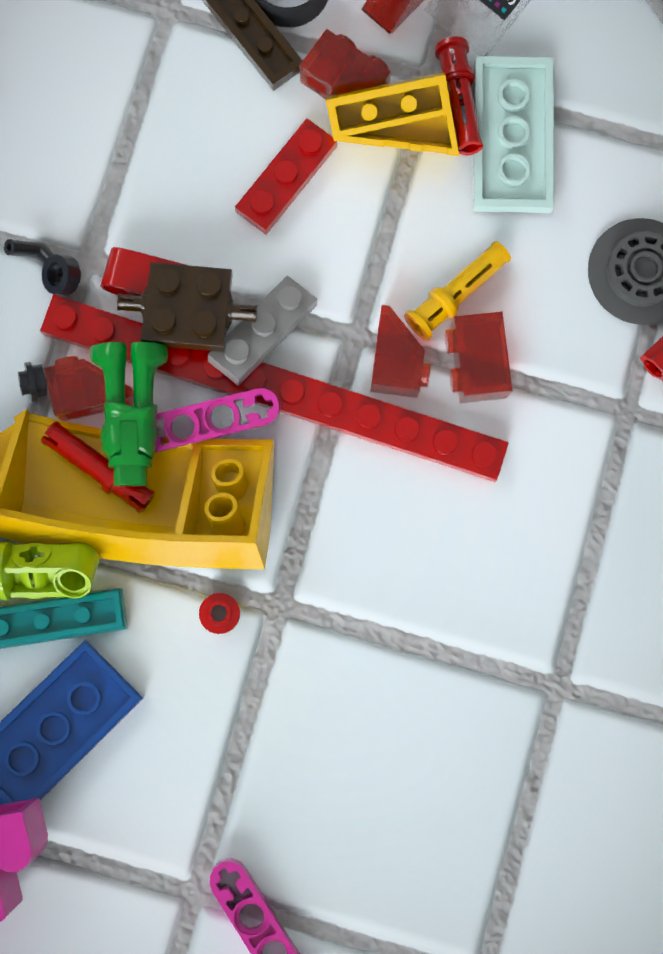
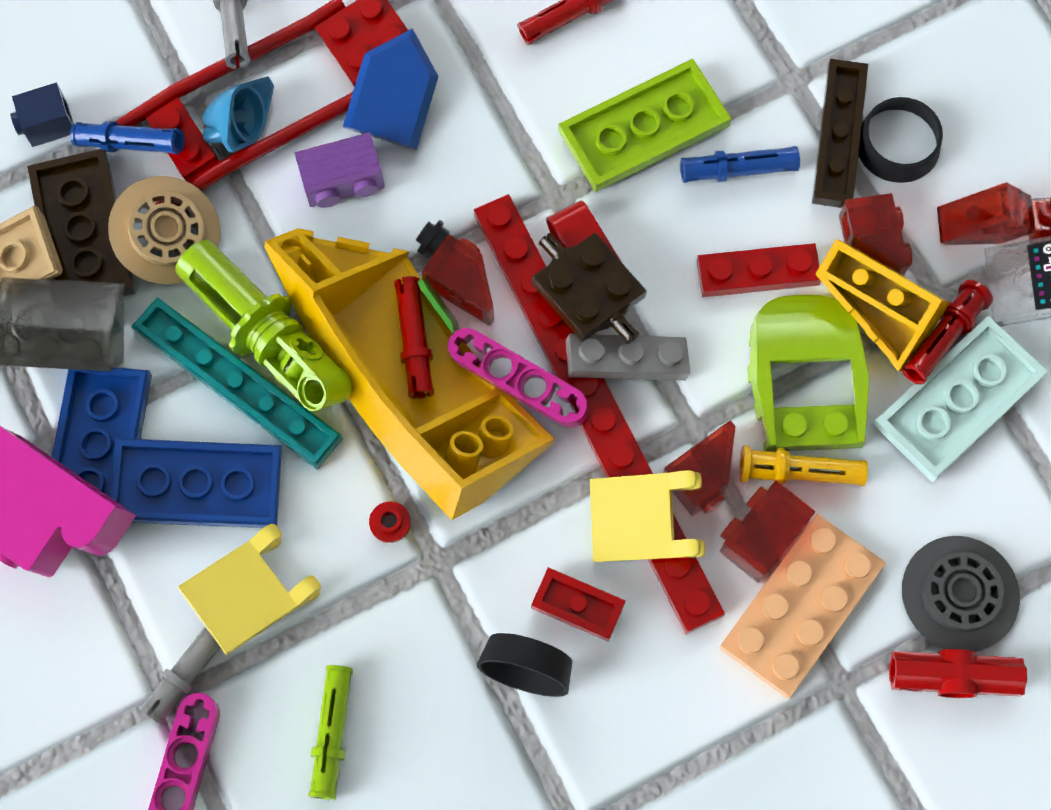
camera: 50 degrees right, 10 degrees down
(59, 272) = (529, 183): black plate -> none
(81, 424) = (438, 304): none -> bright green piece
(97, 146) = (644, 125): none -> lime plate
(129, 430) = (460, 331): green piece -> none
(171, 770) = (243, 595): none -> light yellow flag
(185, 122) = (722, 165): none -> blue pin
(188, 855) = (180, 677): none -> light grey pin
(364, 834) = (330, 733): none -> lime pin
(365, 188) = (807, 331): none -> lime slope
(385, 437) = (636, 517): none -> light yellow flag
(406, 536) = (578, 604): none -> red plate
(419, 614) = (526, 664): none -> black tyre
(552, 385) = (802, 606): none -> light nougat plate

